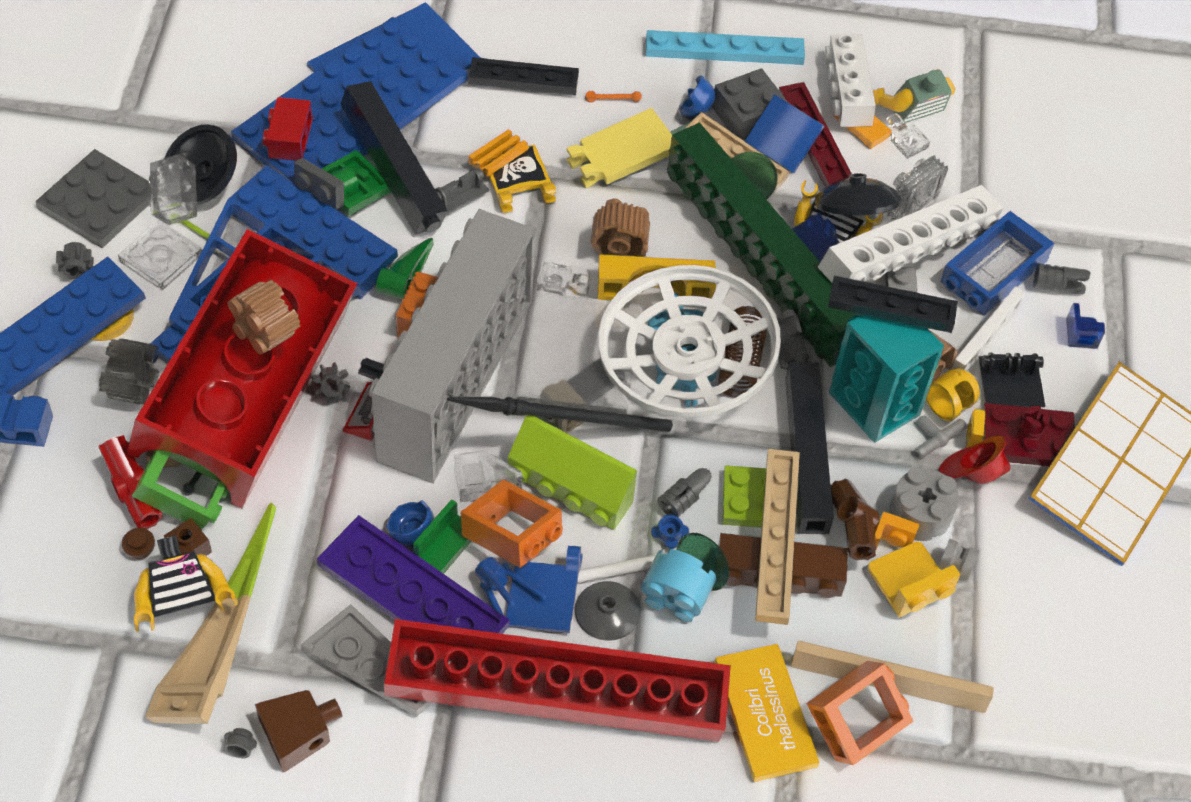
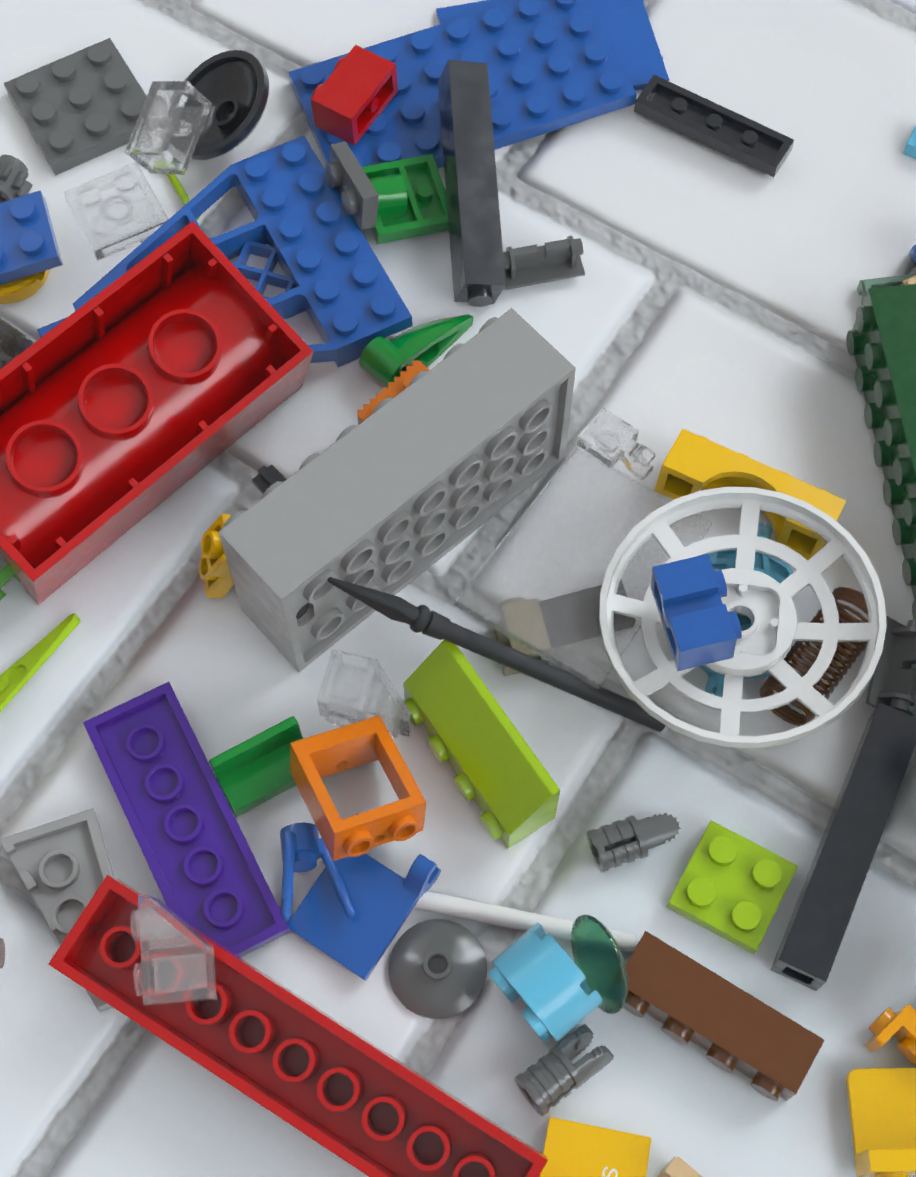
camera: 30 degrees right, 10 degrees up
(263, 316) = (141, 358): medium nougat brick -> none
(326, 388) = (231, 473): dark grey gear -> none
(355, 430) = (213, 562): none -> yellow slope
(409, 522) = (229, 720): blue hair -> none
(464, 640) = (175, 959): none -> clear slope
(494, 150) = (619, 219): light orange tile -> none
(520, 175) = (636, 261): flag -> none
(591, 96) = (795, 187): orange hinge -> none
(620, 229) = (730, 404): medium nougat brick -> none
(621, 148) = (797, 279): light yellow tile -> none
(663, 346) = (693, 613): none -> blue brick
(673, 523) = (586, 874): blue plate -> none
(709, 631) = (556, 1076): none -> dark grey hinge
(777, 537) = (721, 981): tan plate -> none
(858, 518) = (863, 994): reddish brown piece -> none

